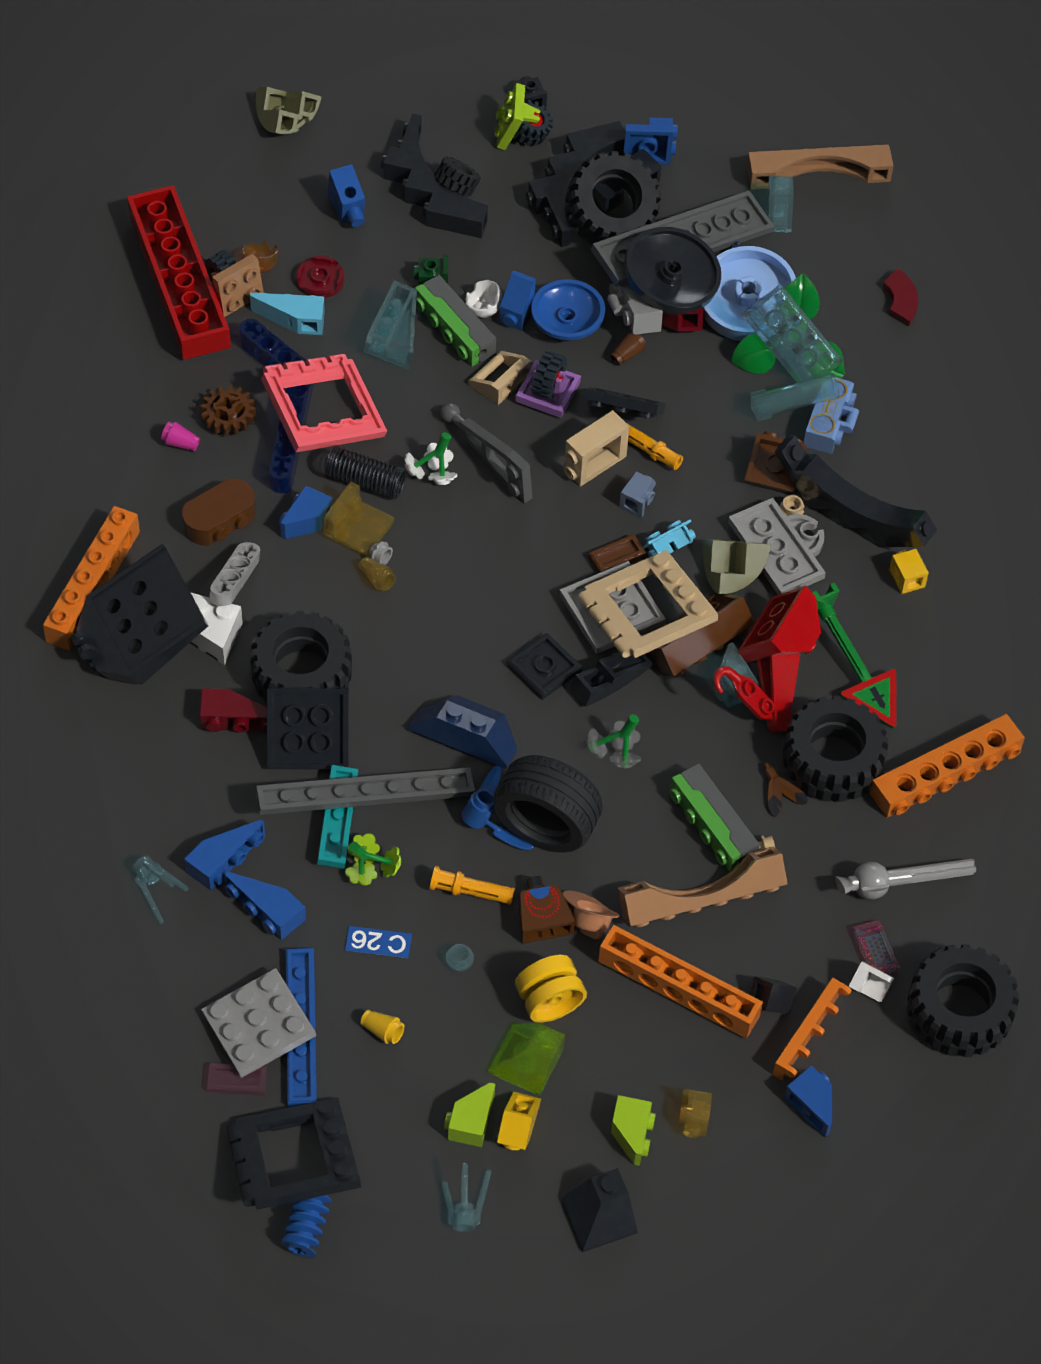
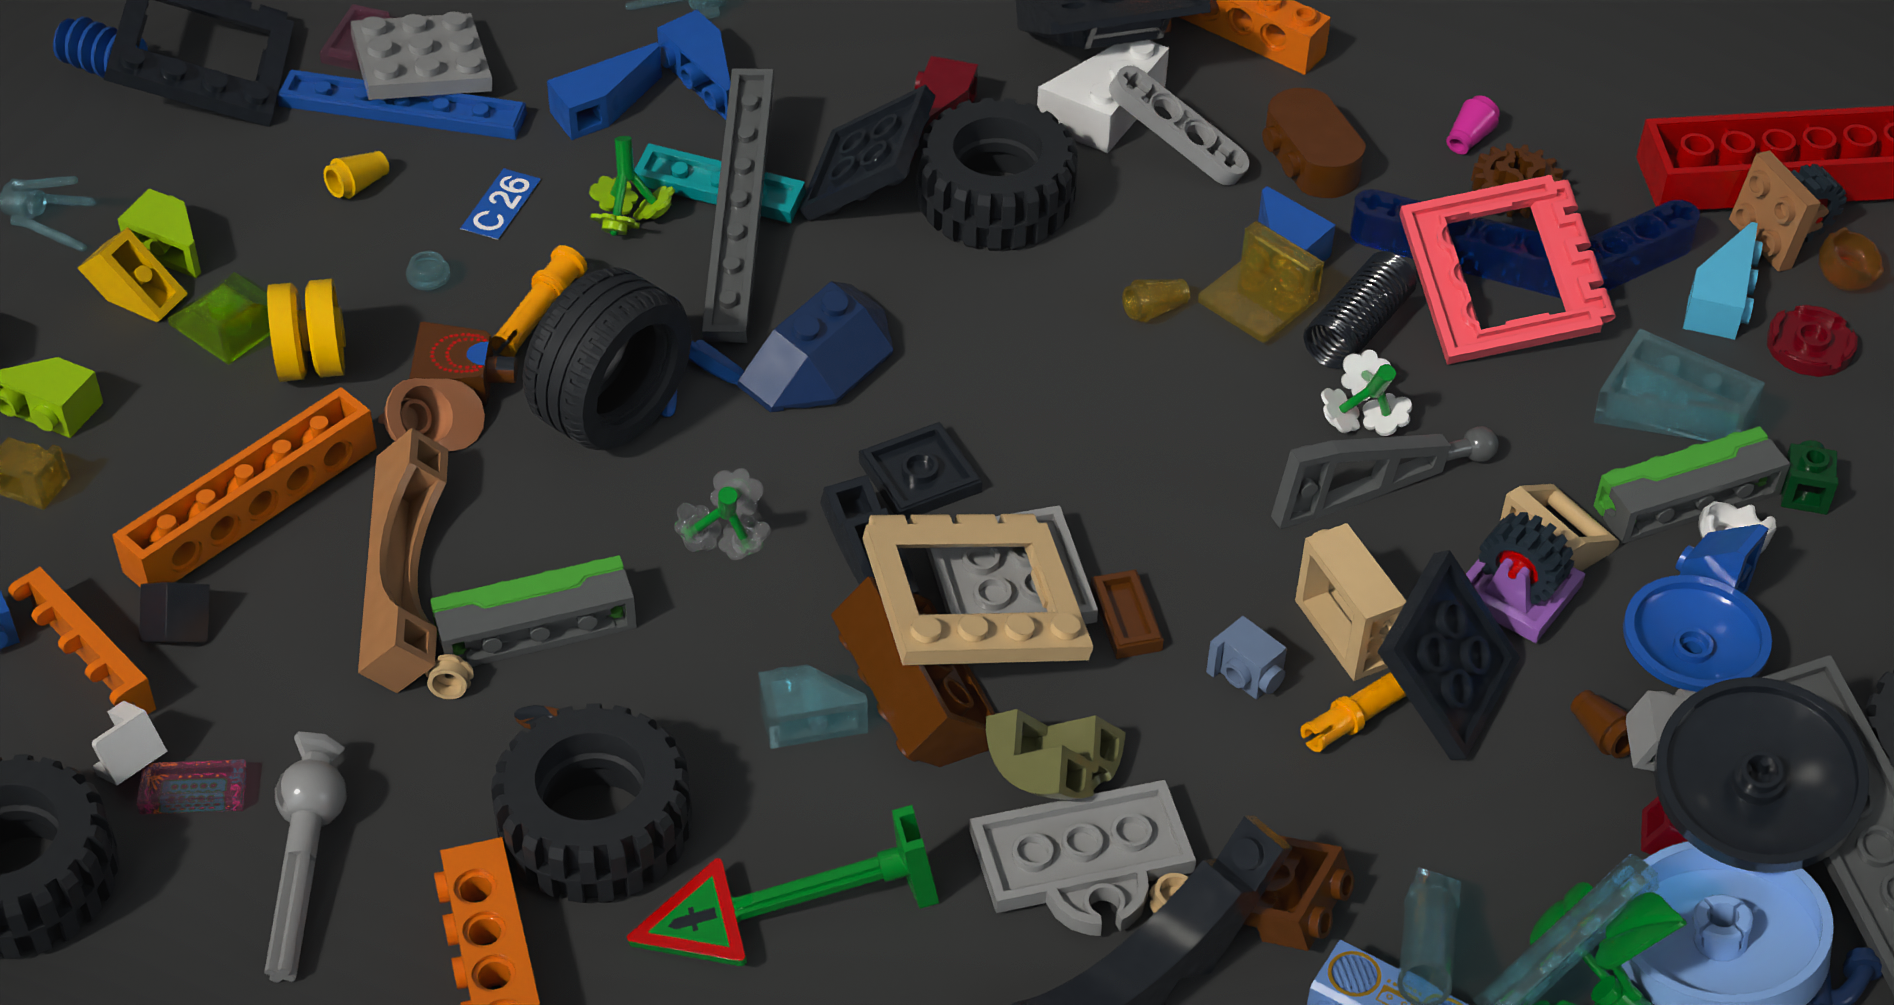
camera: 105 degrees right, 10 degrees down
(381, 552) = (1195, 309): light grey plate -> none
(676, 533) = (1146, 701): medium azure hinge -> none
(775, 643) = (819, 746): red slope -> none

